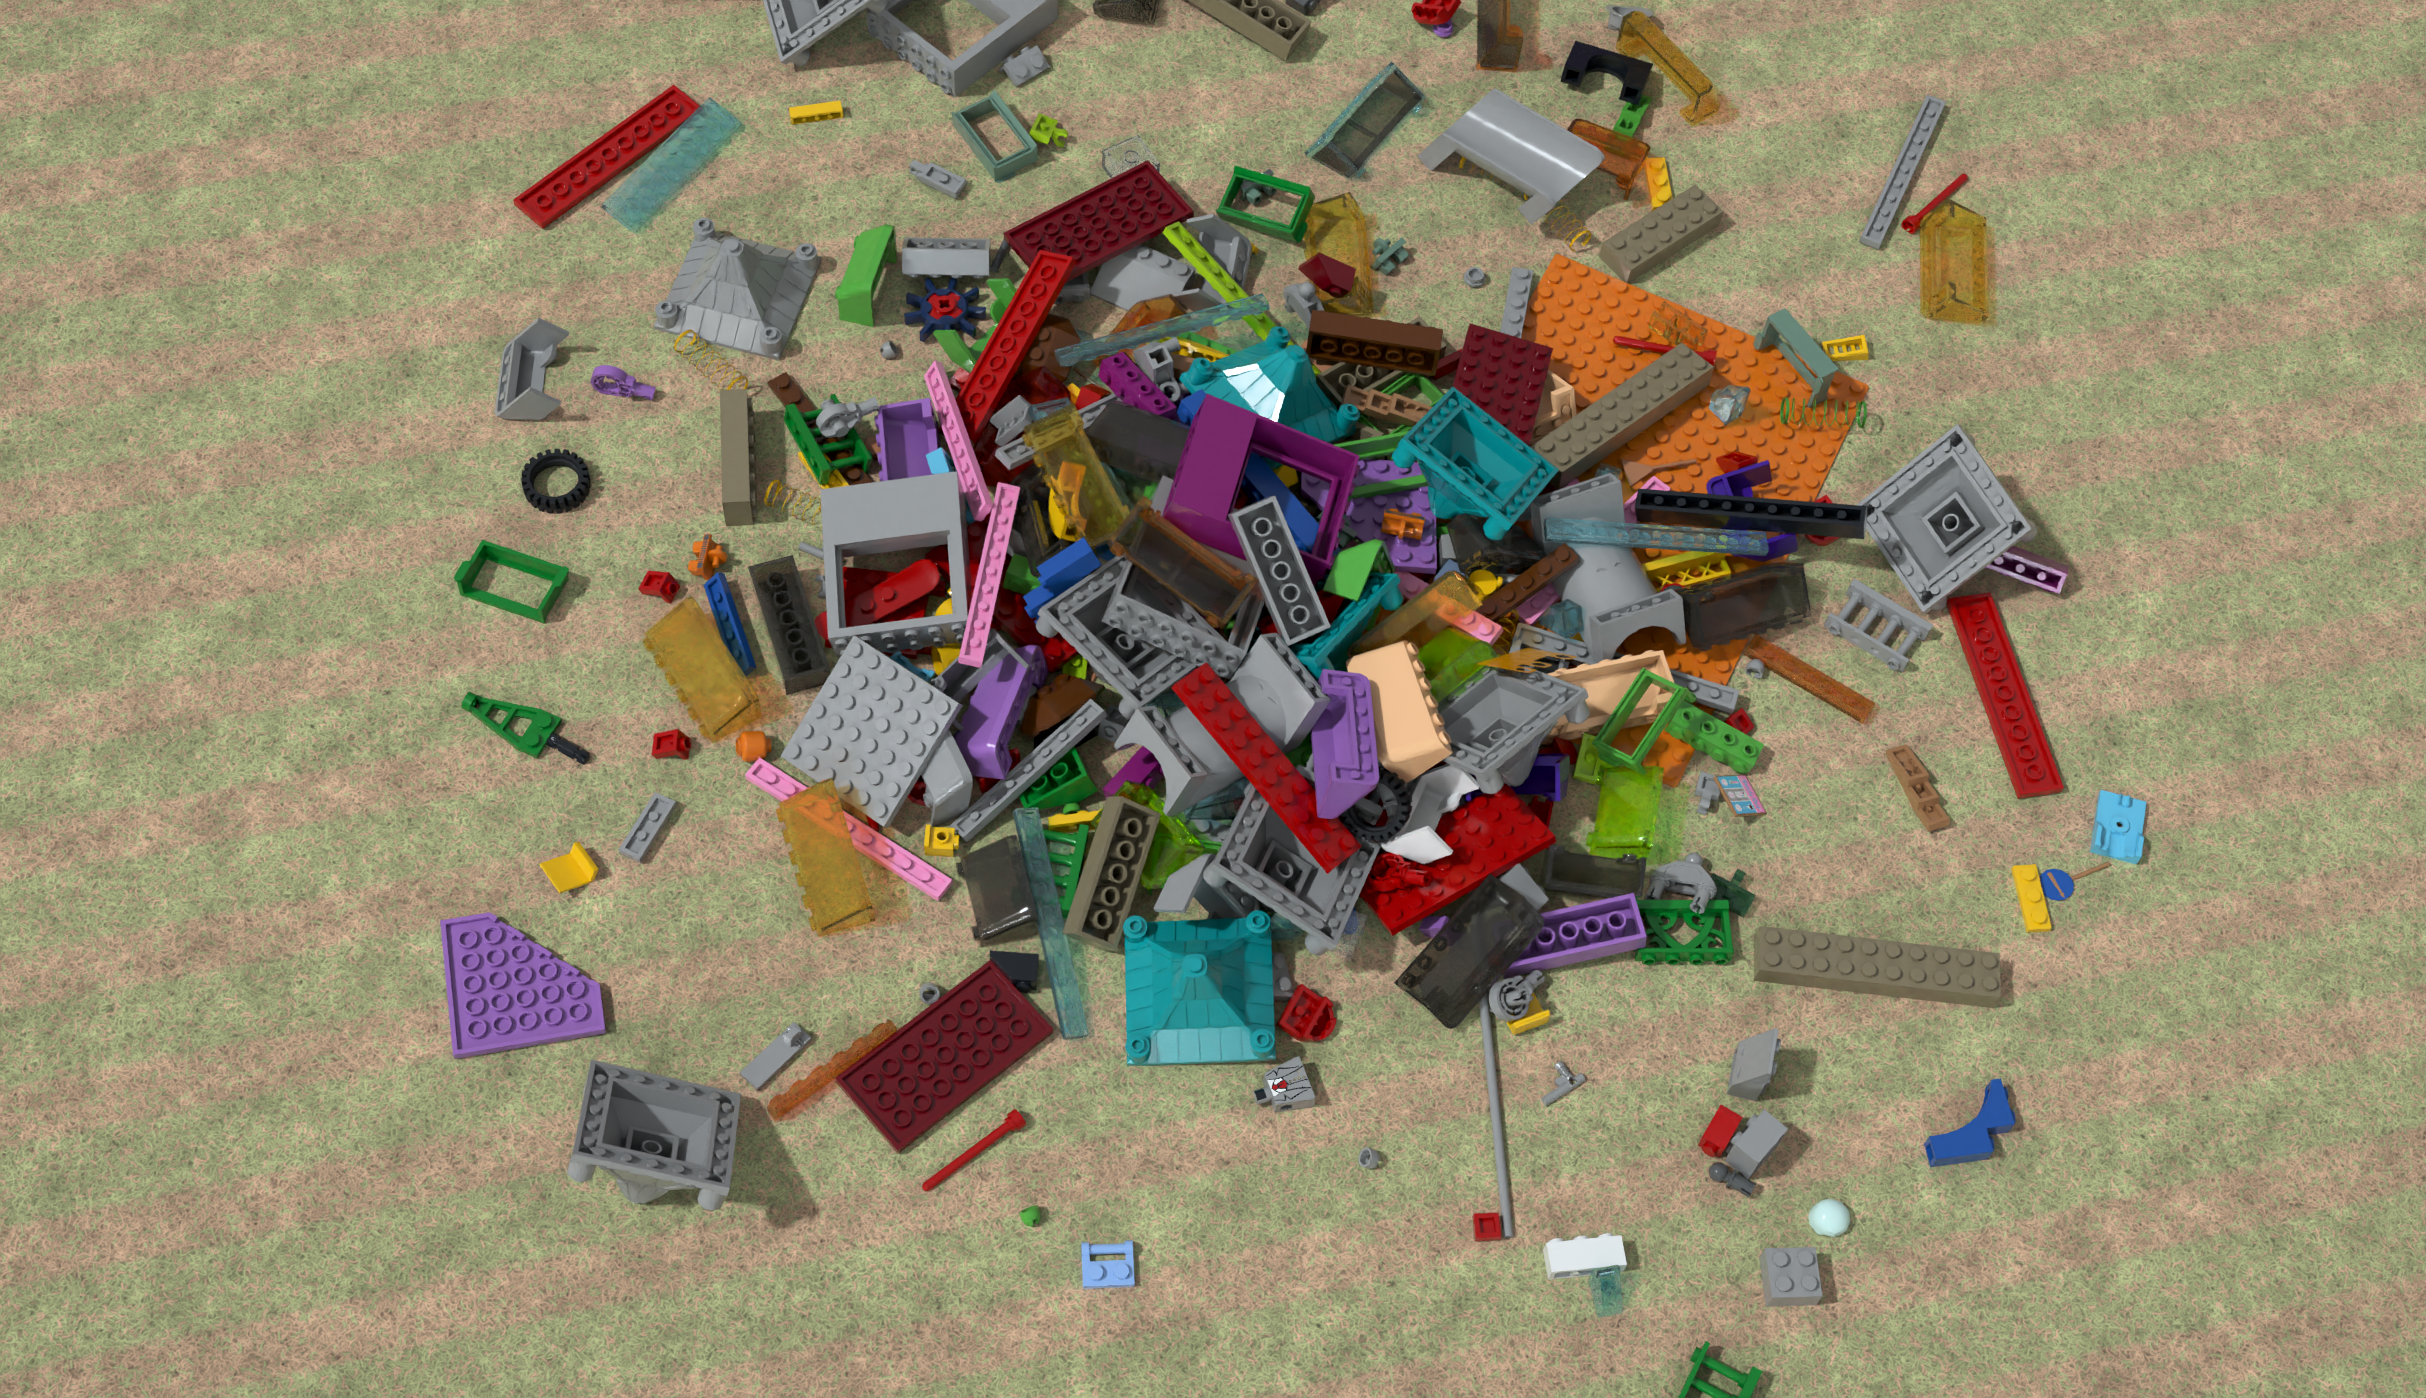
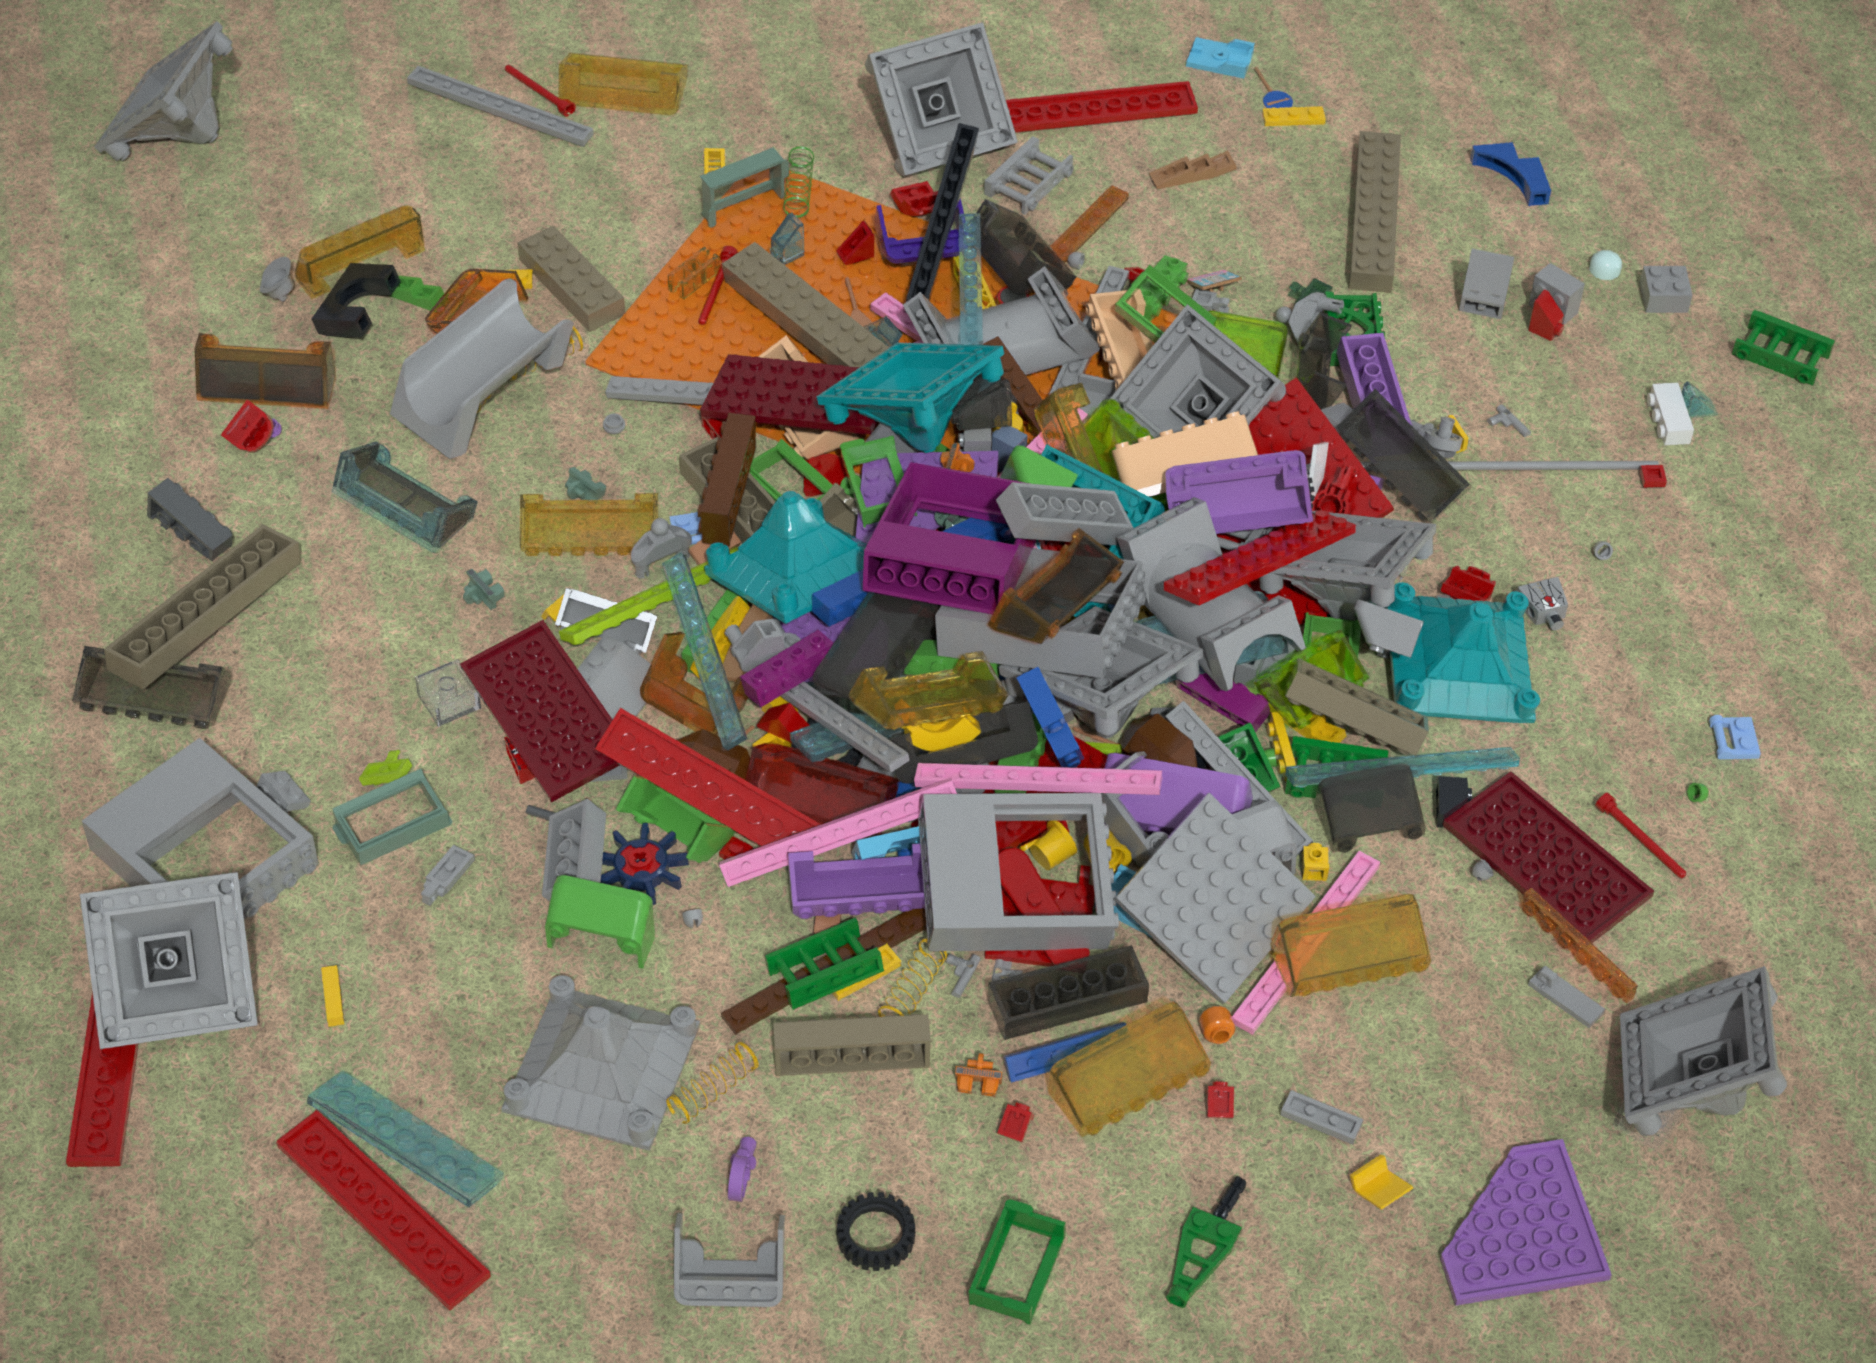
camera: 85 degrees left, 10 degrees down
(843, 416) = (817, 936): light grey pin -> none
(1011, 420) = (812, 787): light grey bracket -> none
(1292, 232) = (489, 604): green piece -> none
(1329, 274) = (632, 517): dark red slope -> none
(1385, 407) = (801, 471): medium nougat slope -> none
(1524, 656) = (1118, 386): light orange piece -> none
(1563, 618) = (1044, 370): clear light blue slope -> none
(1719, 1172) = (1582, 319): dark grey pin -> none

